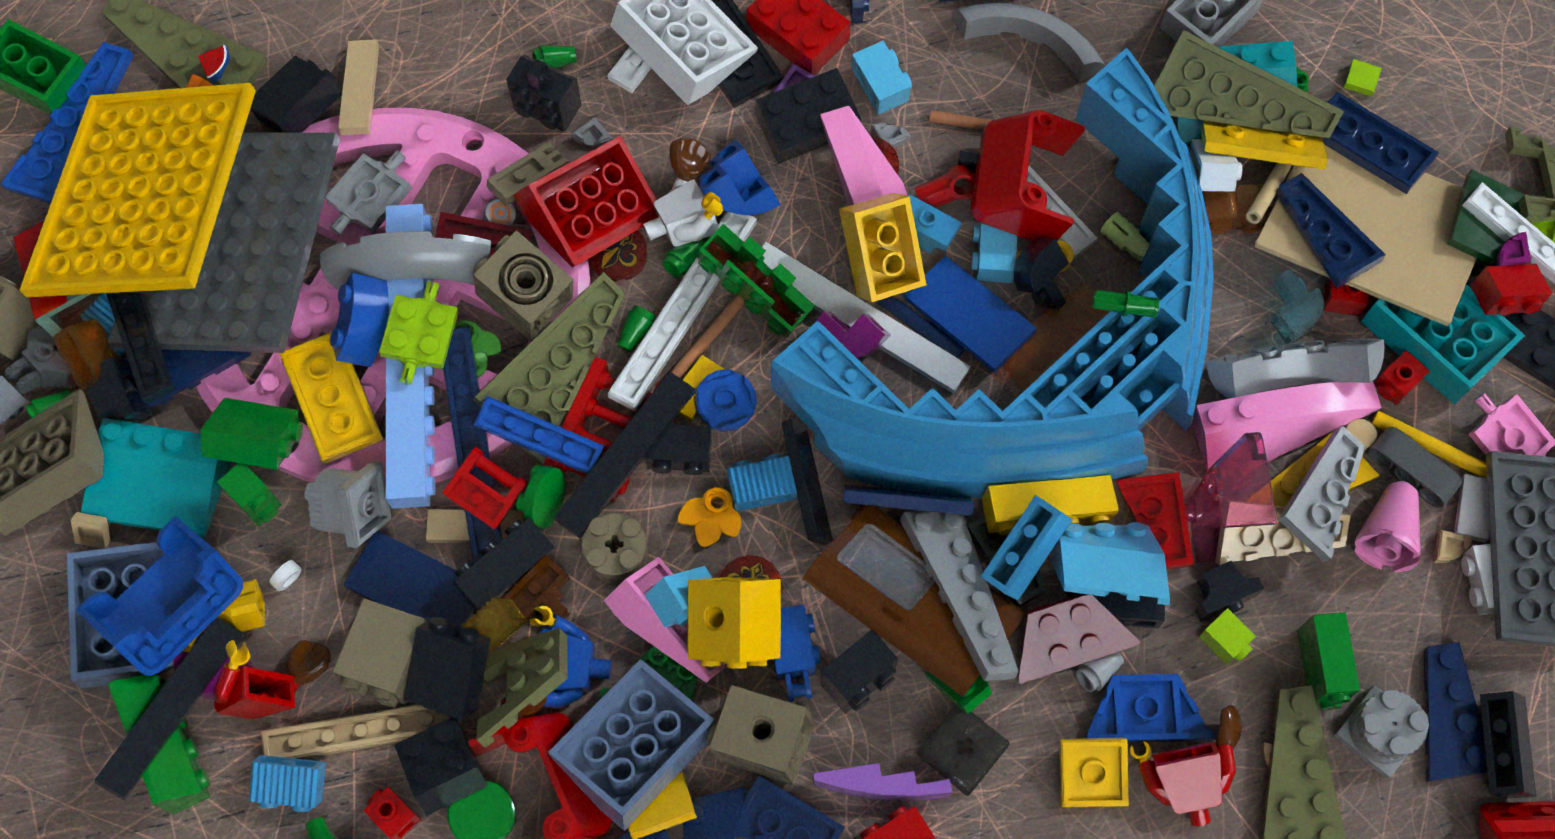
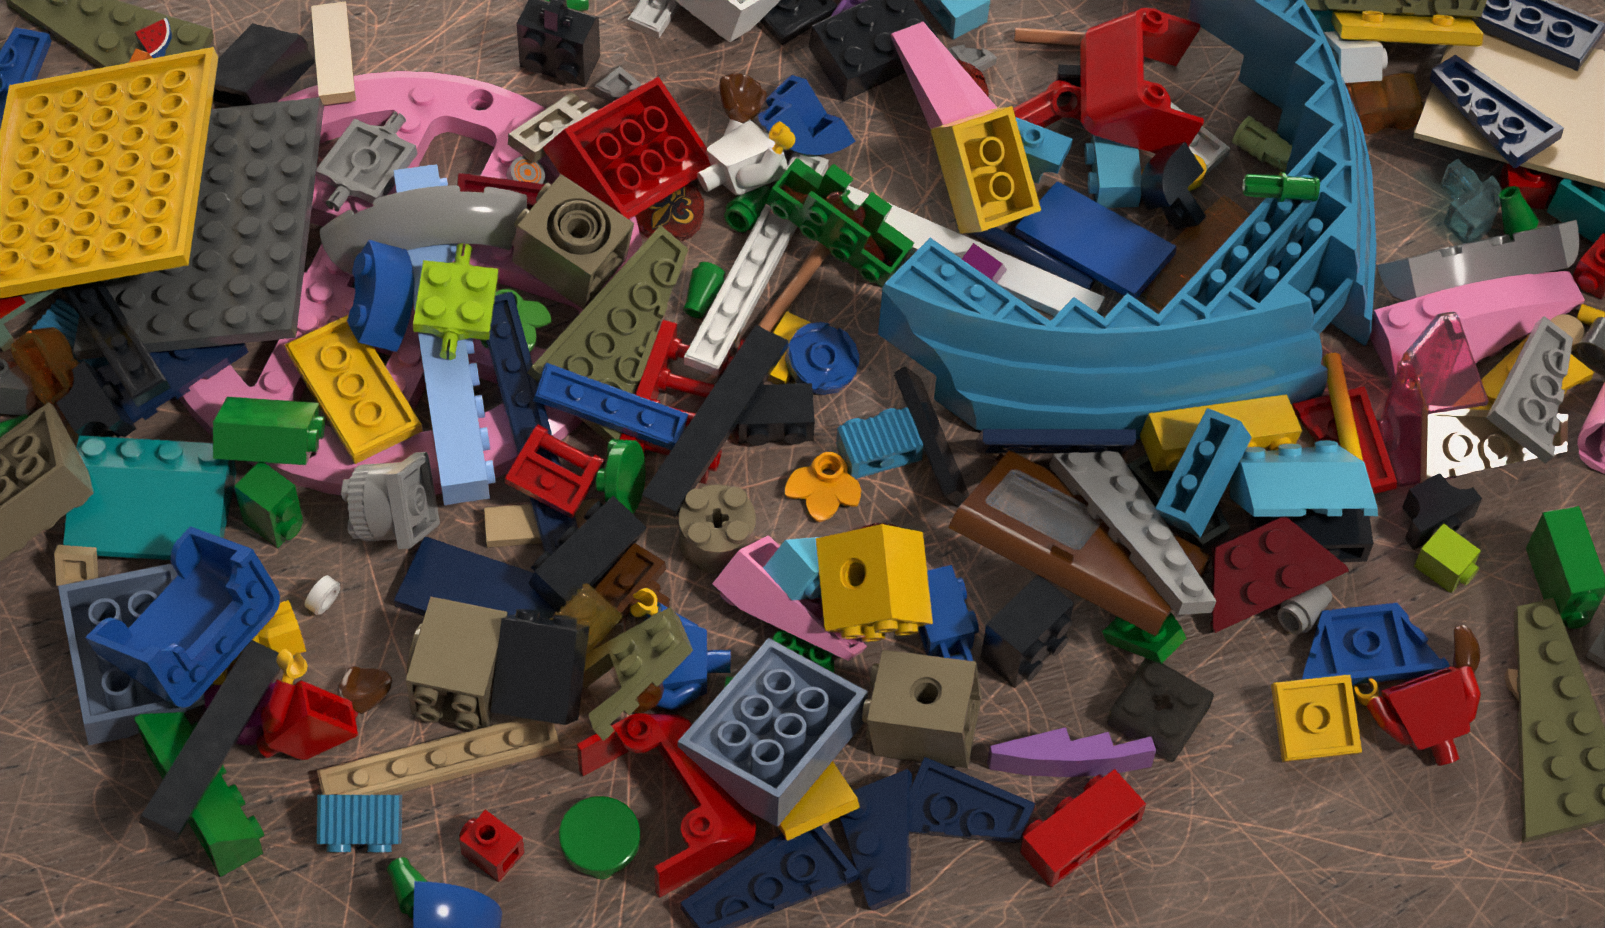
camera: 10 degrees left, 10 degrees down
(440, 765) = (545, 781): black brick -> none
(1157, 494) = (1341, 404): none -> yellow piece
(1267, 192) = (1420, 76): tan piece -> none
(1333, 323) = (1516, 212): none -> green cone

